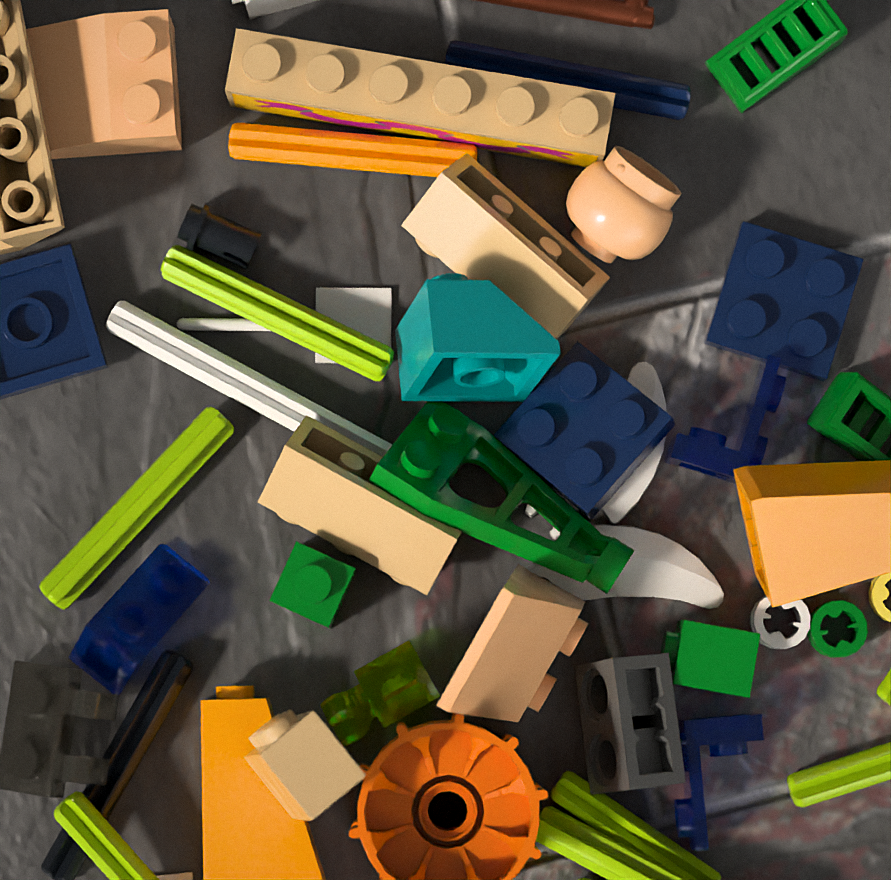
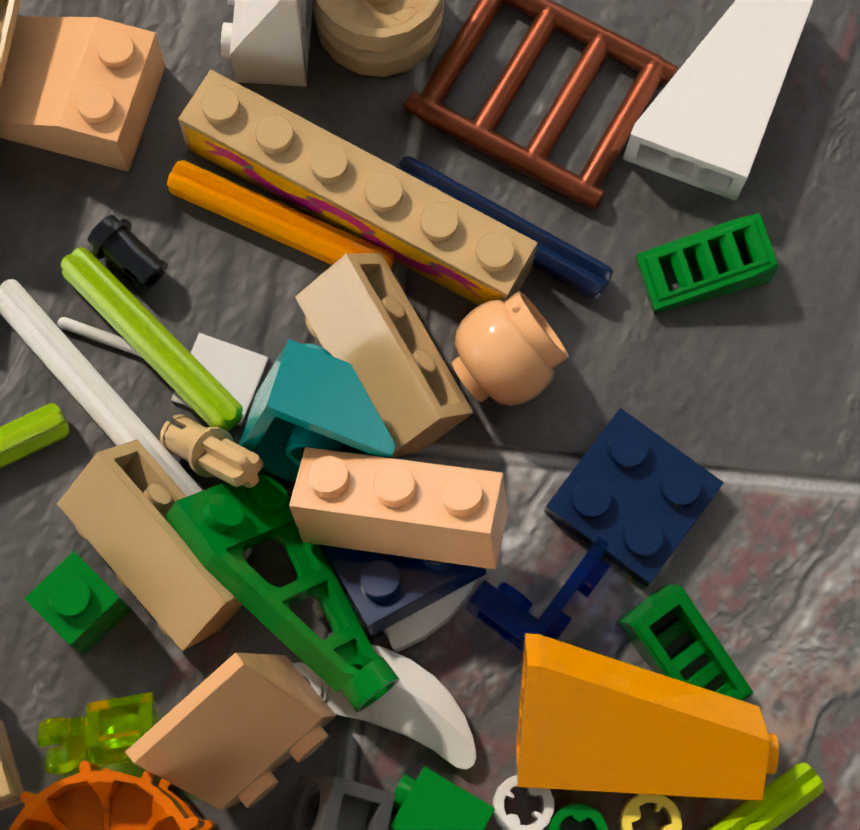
camera: 25 degrees right, 10 degrees down
(381, 403) = (211, 452): none -> tan axle
(581, 396) = (400, 507): none -> light nougat brick

